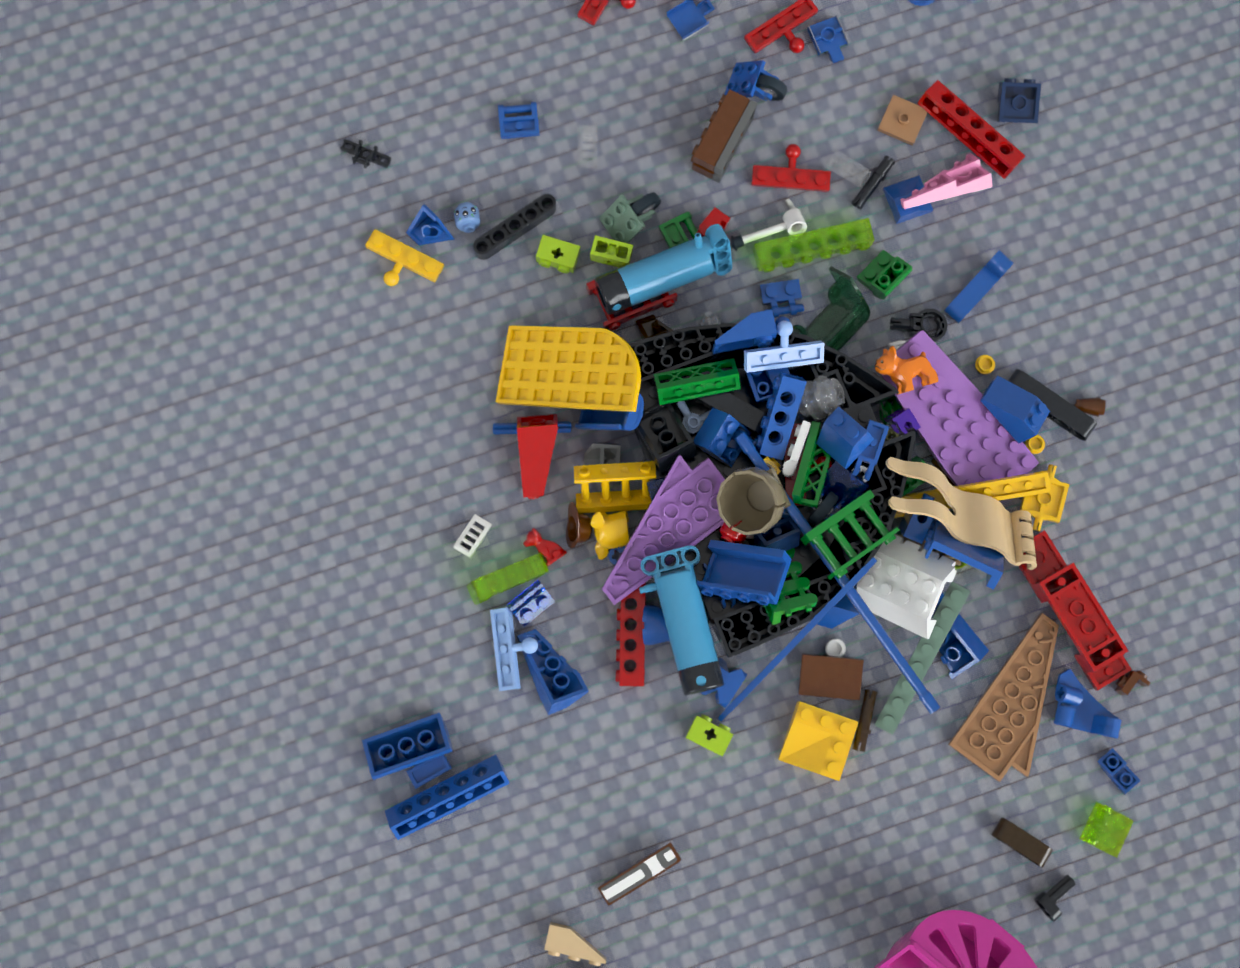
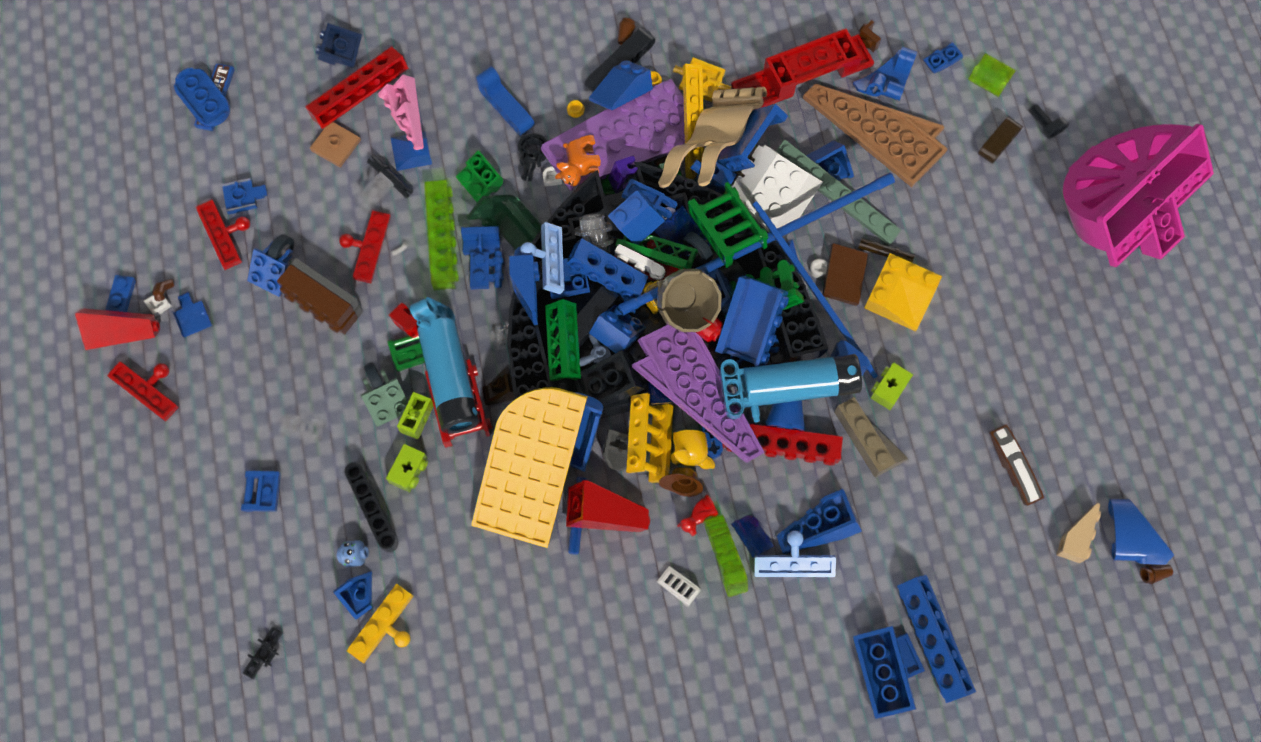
camera: 80 degrees left, 10 degrees down
(642, 722) = (870, 442): none -> dark tan wedge
(792, 222) = (415, 250): white piece -> none
(813, 288) = (480, 239): none -> blue panel

